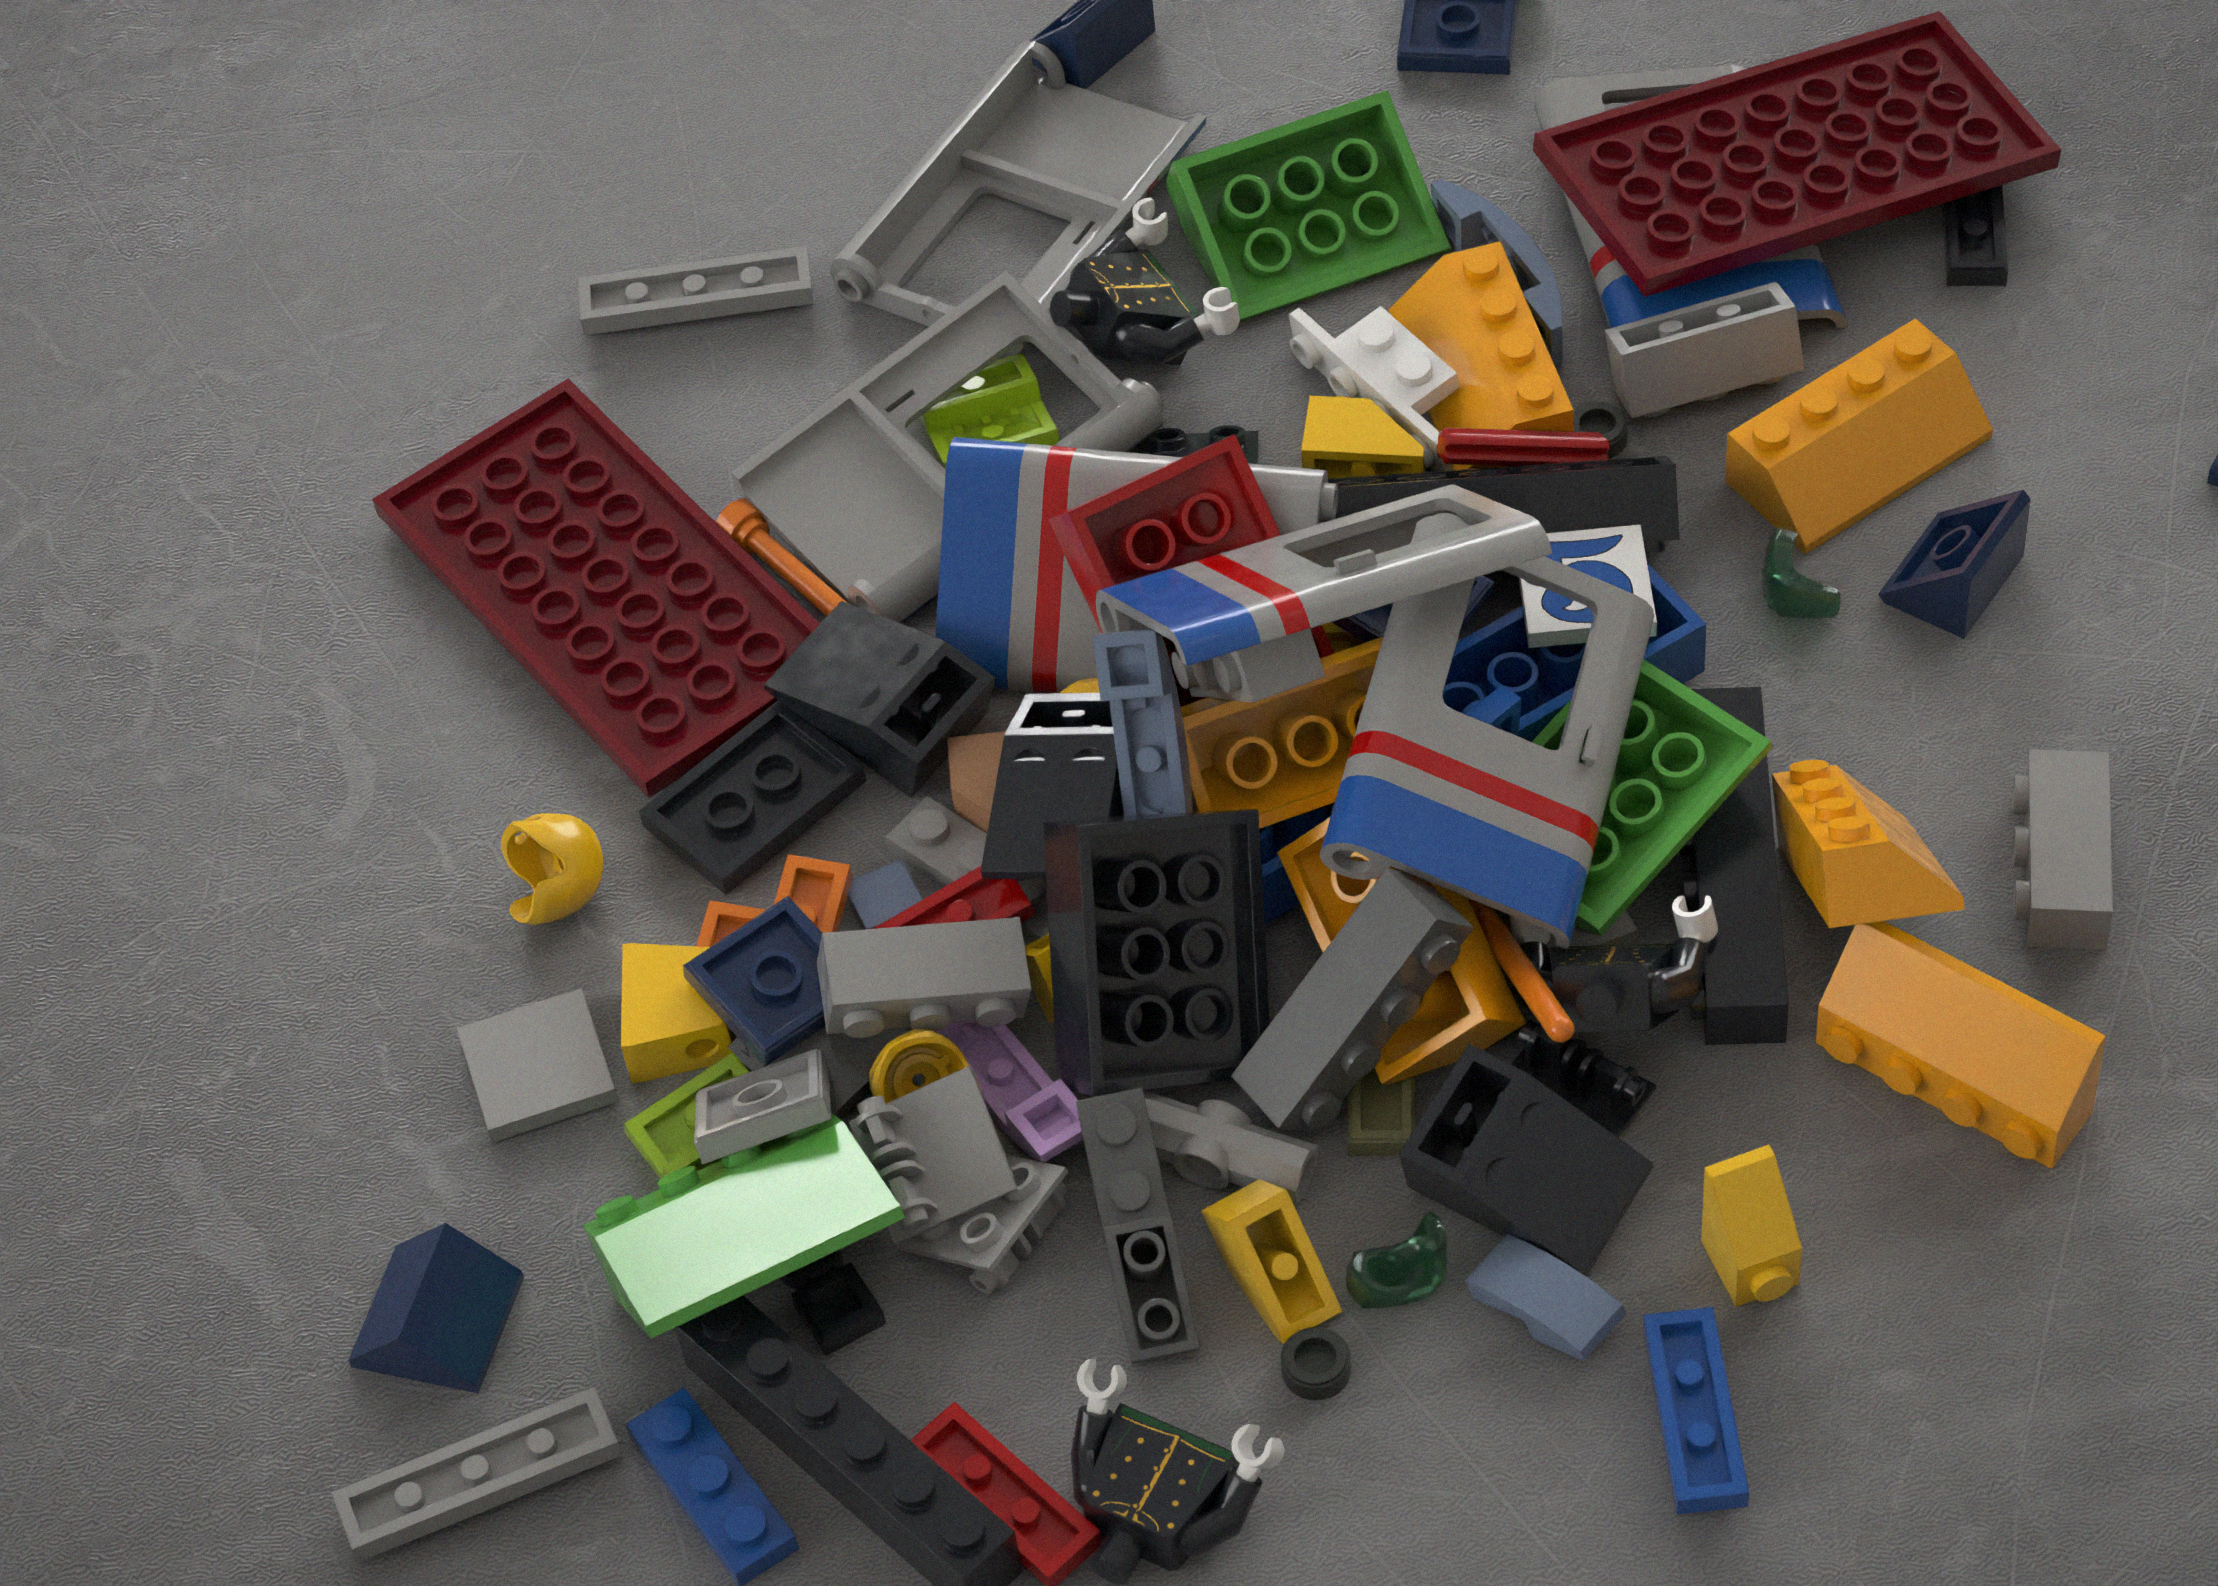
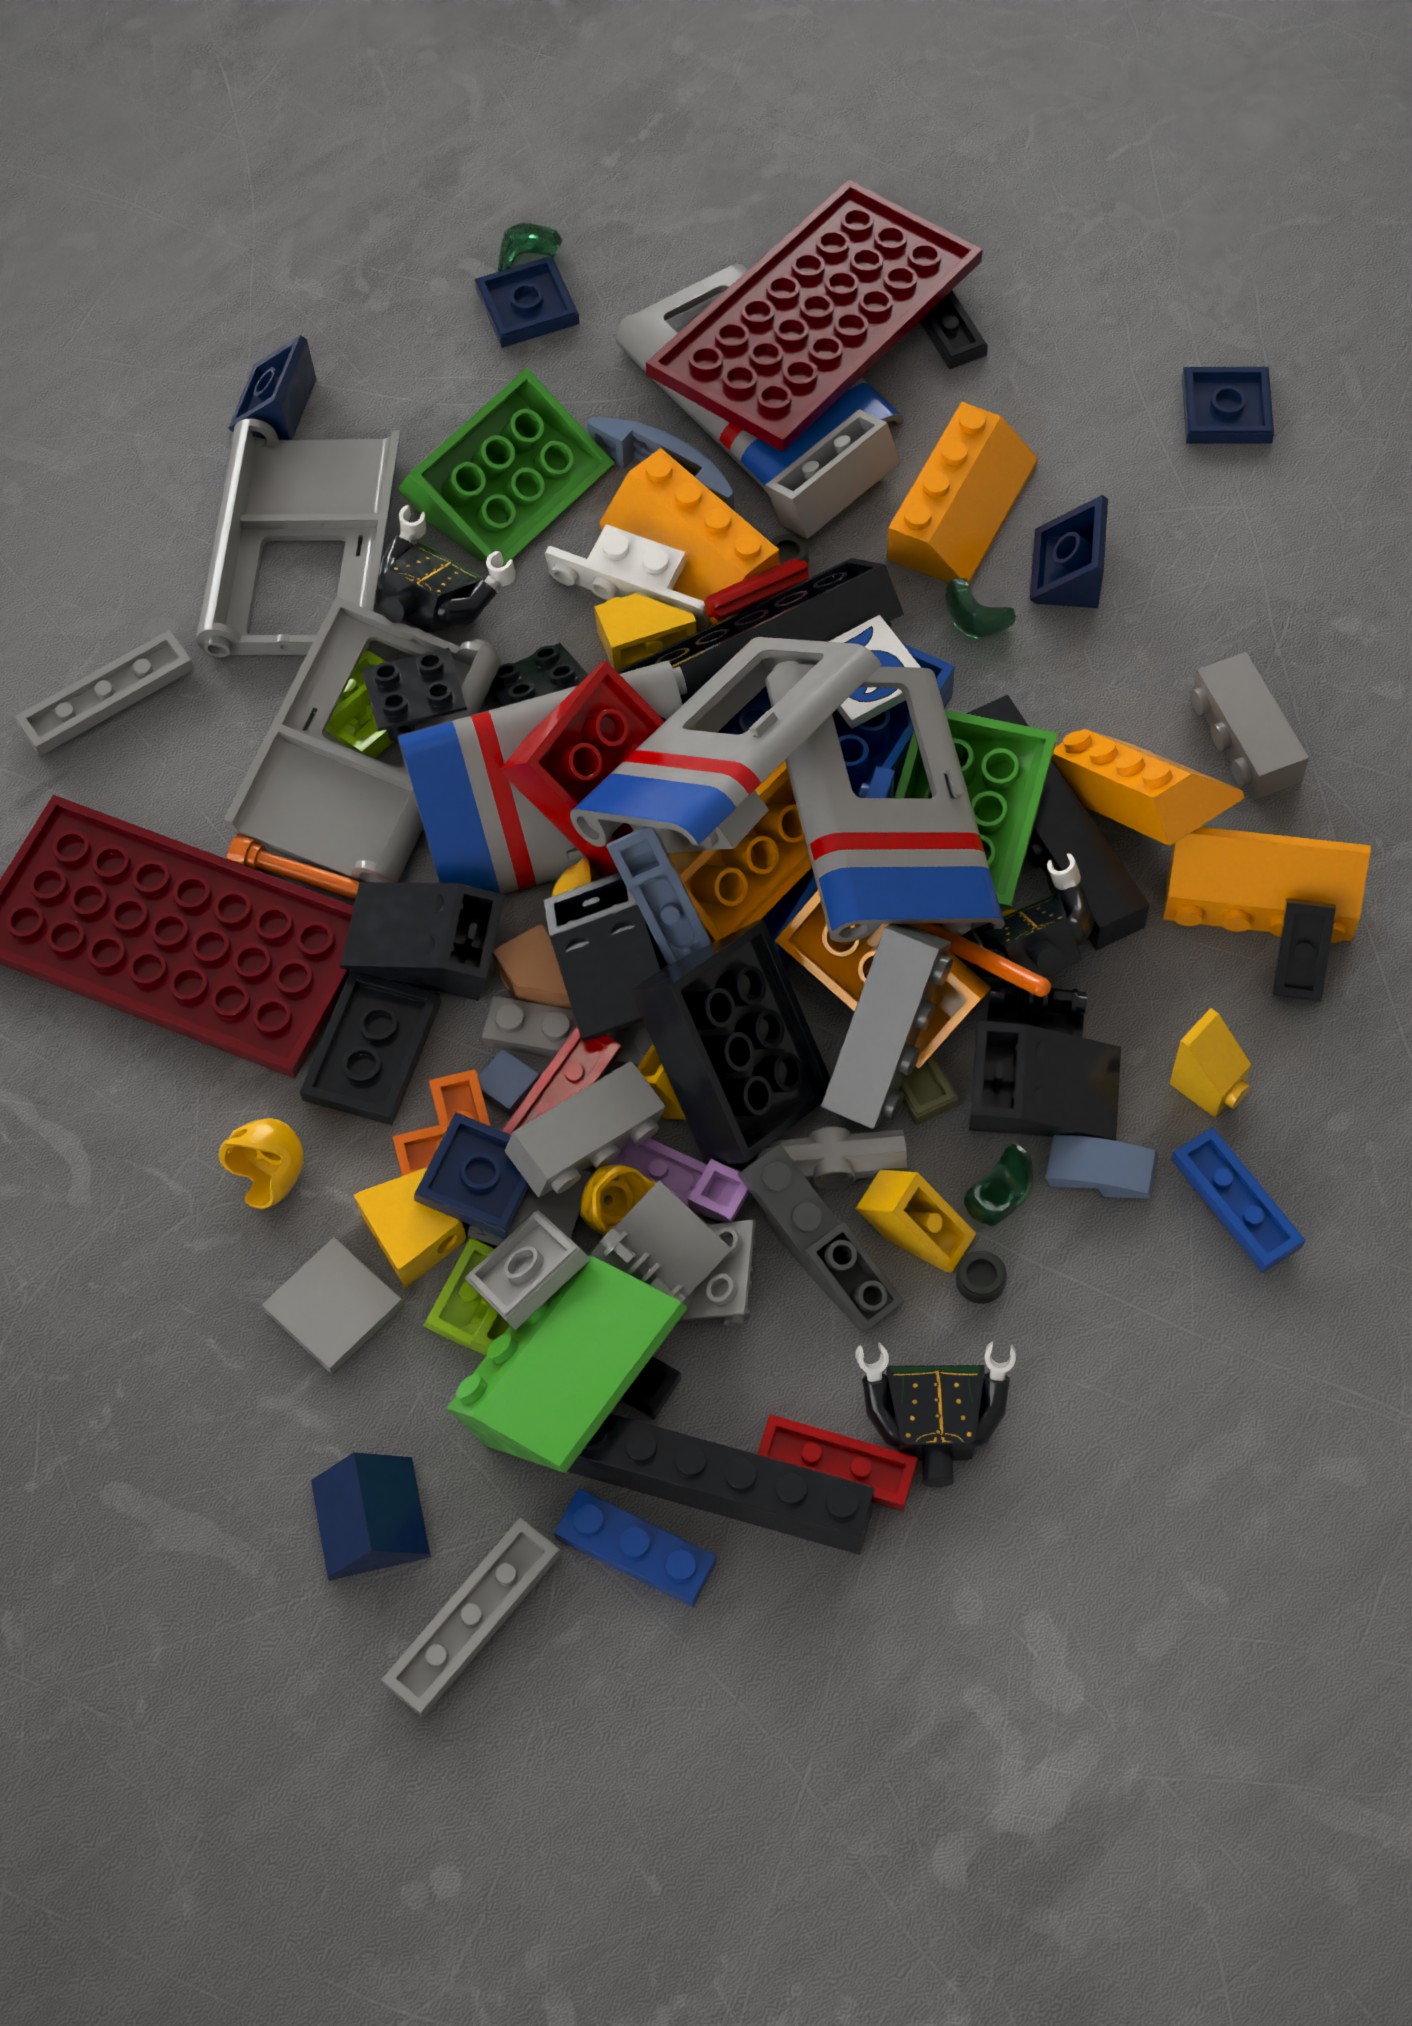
camera: 30 degrees left, 10 degrees up
(1034, 407) = (413, 691): none -> black hinge
(1962, 1141) = (1303, 949): none -> black plate

